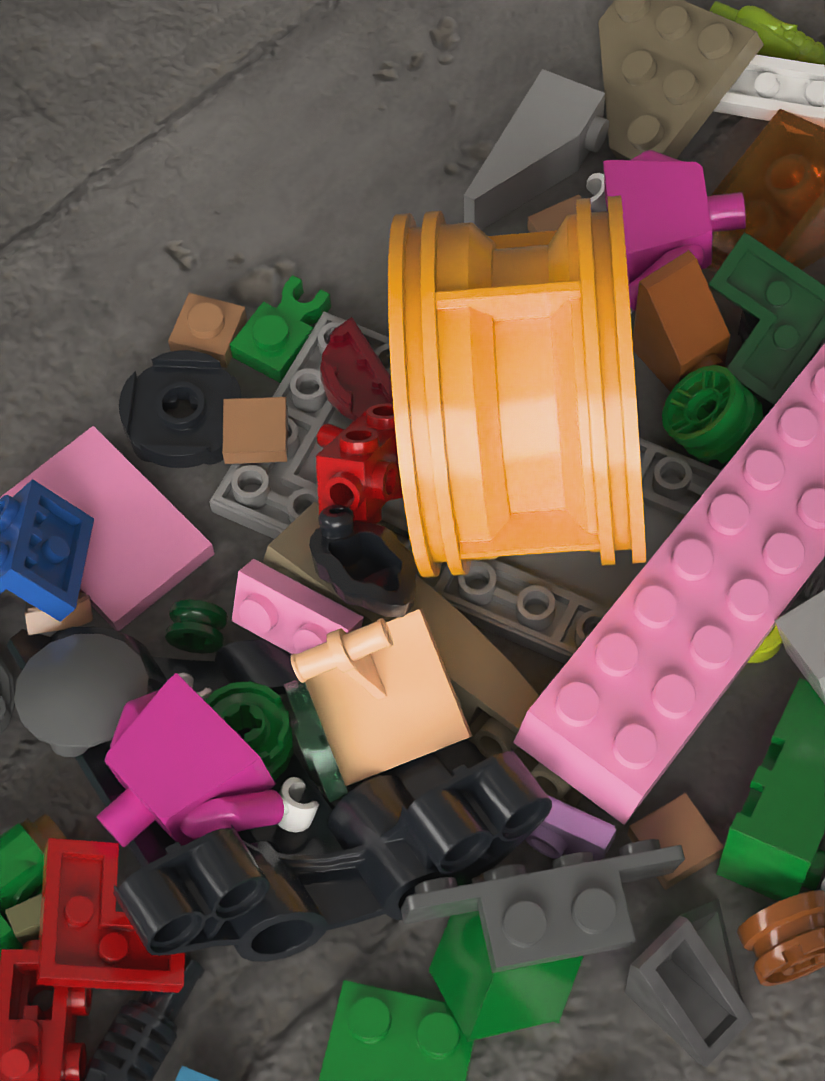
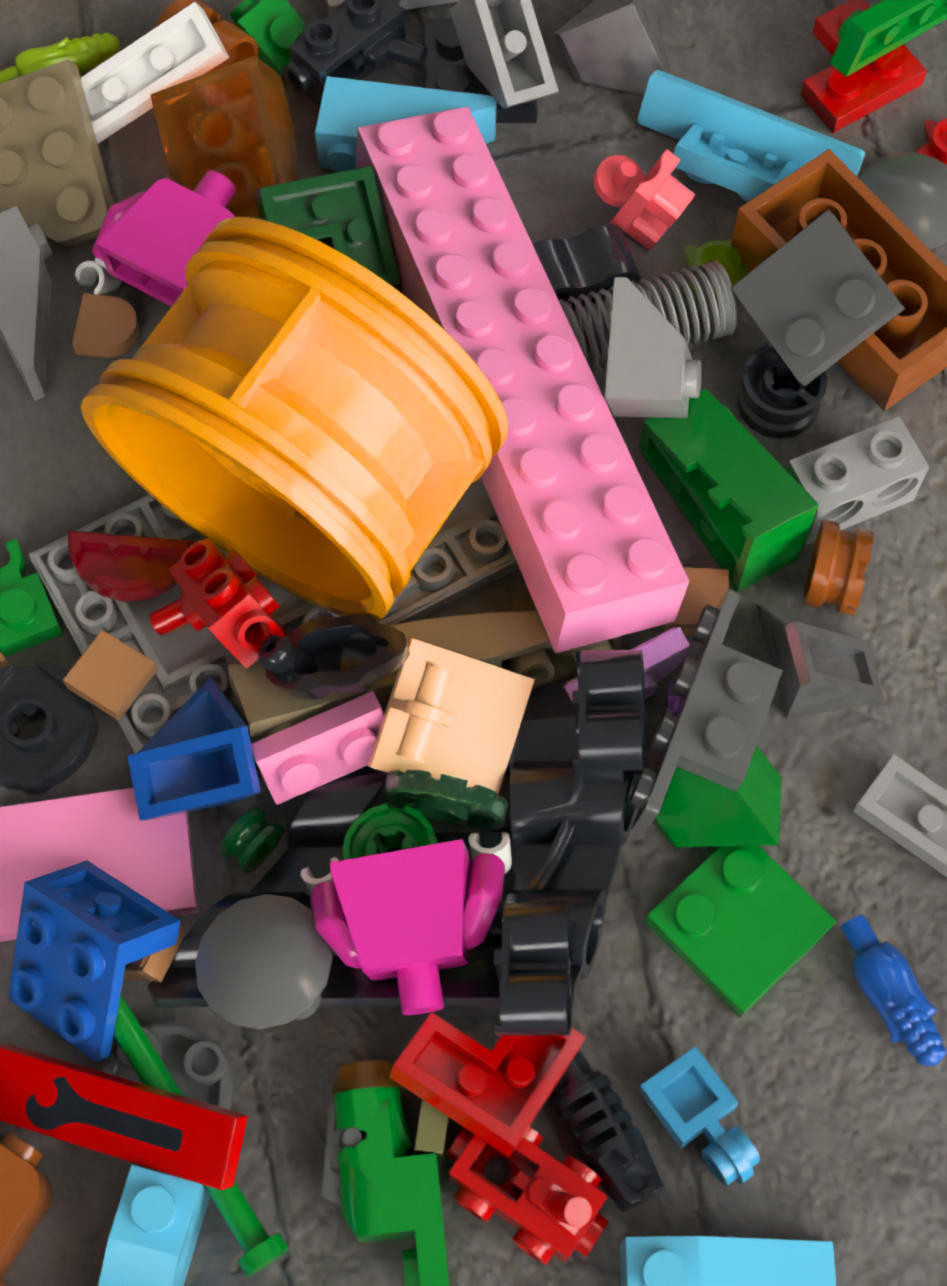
camera: 60 degrees left, 5 degrees up
(223, 532) = (195, 759): none -> blue slope

